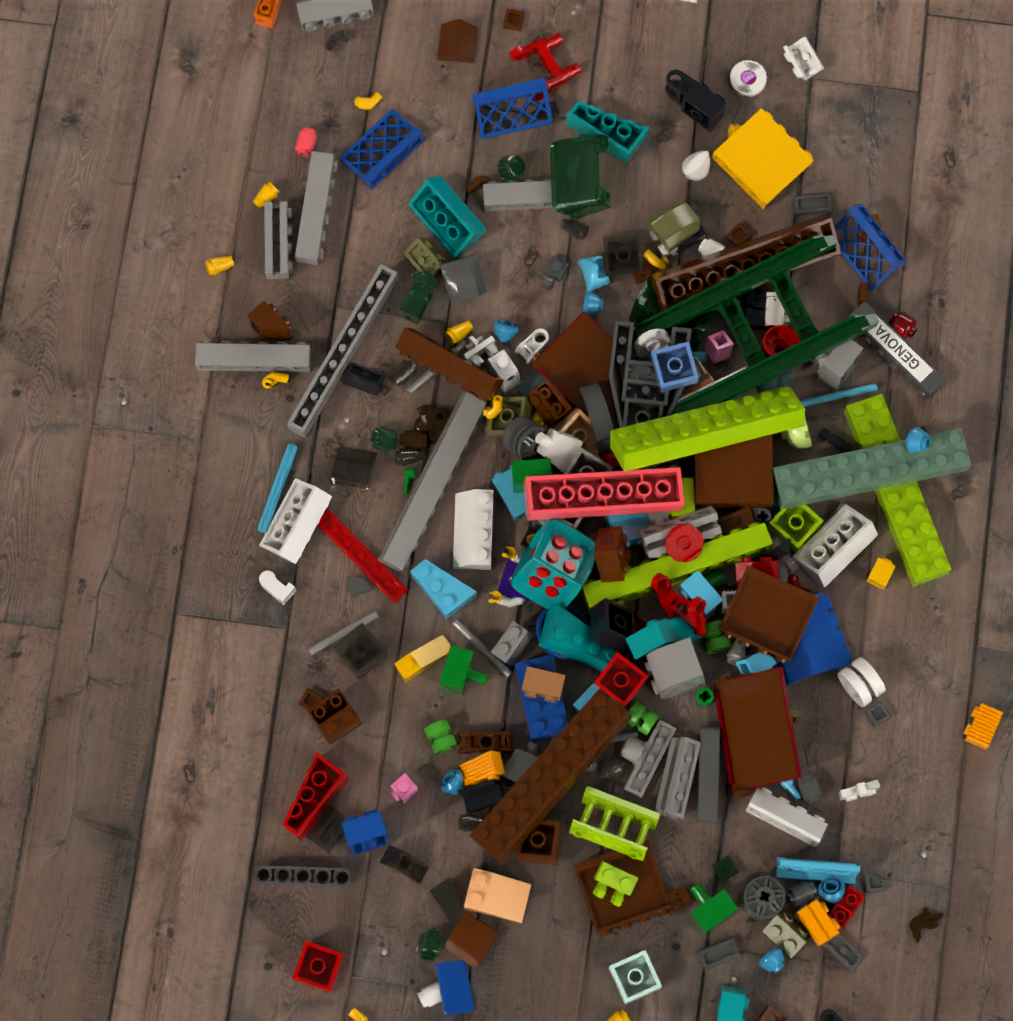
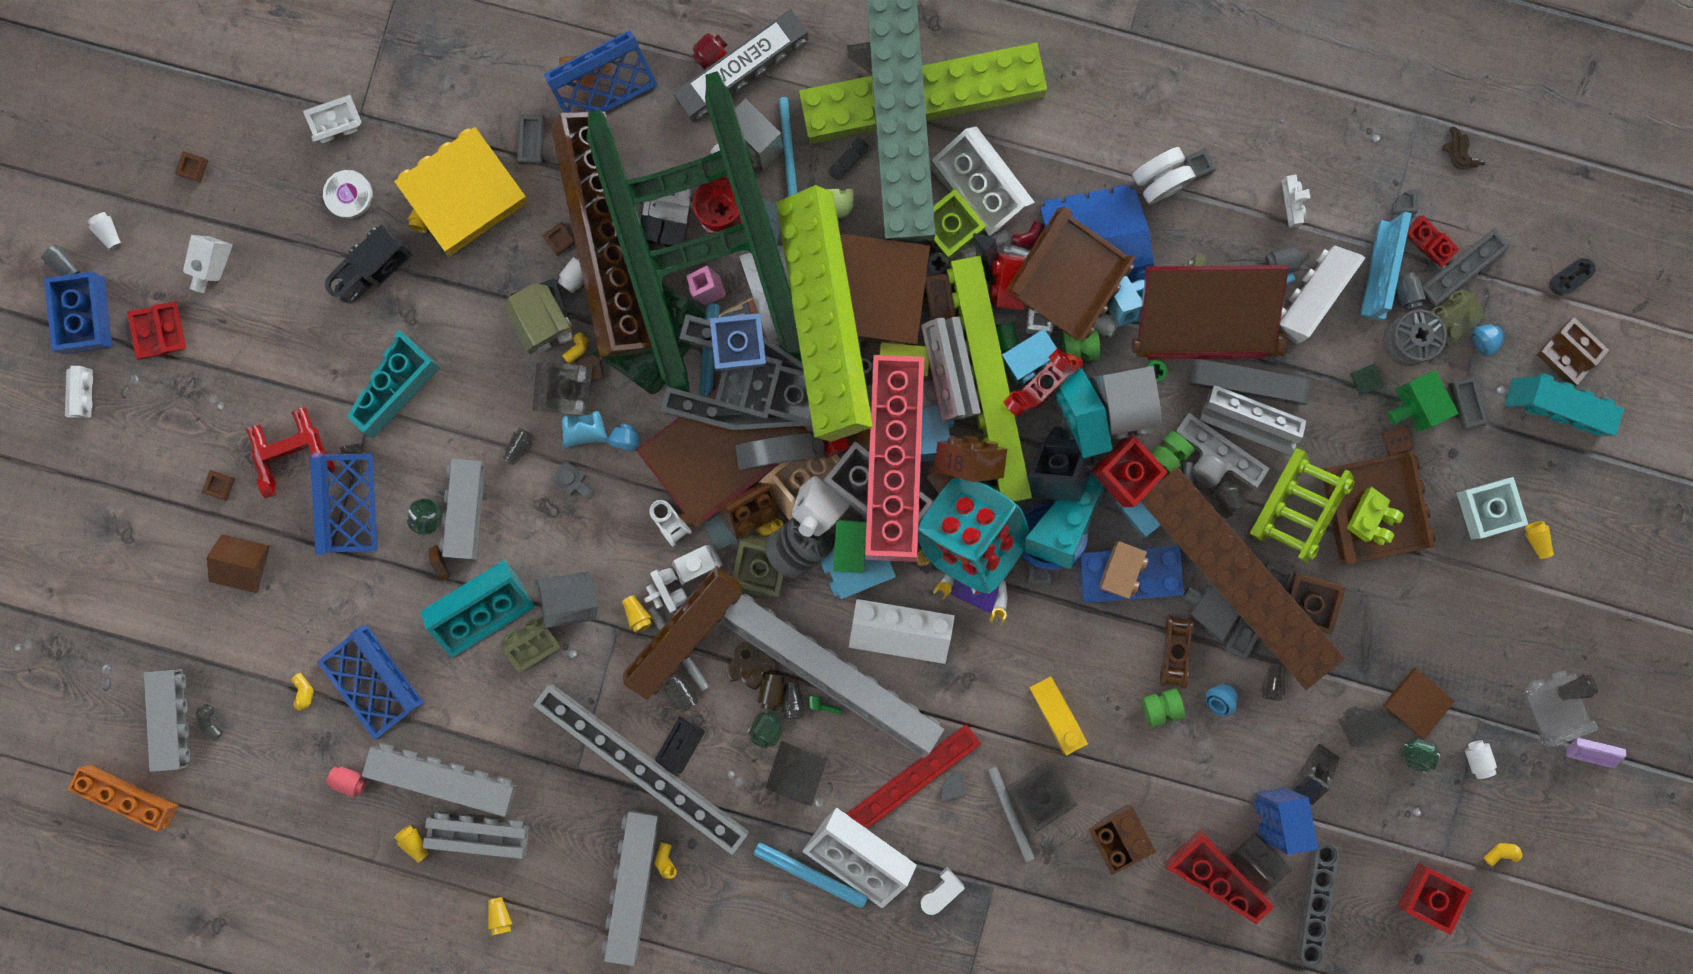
camera: 80 degrees left, 10 degrees up
(269, 324) = (591, 863): reddish brown slope -> none
(309, 699) = (1092, 865): reddish brown tile -> none
(403, 788) = (1223, 763): bright pink brick -> none
(418, 296) = (581, 660): clear green piece -> none
(442, 589) = (973, 681): medium azure wedge -> none
(454, 987) = (1477, 731): blue piece -> none
(459, 670) = (1085, 672): green brick -> none
(481, 795) = (1246, 664): black panel -> none
(482, 648) = (1053, 640): light grey bar -> none
(482, 768) = (1214, 662): light orange brick -> none
(497, 407) = (753, 587): yellow arm -> none
(497, 895) = (1369, 664): light nougat slope -> none
(505, 330) = (642, 554): dark azure cone -> none
(512, 643) = (1057, 602): light grey brick -> none
(576, 176) = (450, 431): clear green windscreen -> none
(651, 341) = (692, 368): white tile -> none
(684, 542) = (968, 365): red tile -> none
(696, 165) = (456, 278): white piece -> none
(818, 922) = (1452, 276): light orange brick -> none
(831, 889) = (1421, 253): dark azure cone -> none
(862, 293) = (661, 95): reddish brown tile -> none
(881, 573) = (1026, 130): yellow brick -> none
(917, 440) = (880, 48): dark azure cone -> none
(983, 725) = (1232, 39): light orange brick -> none

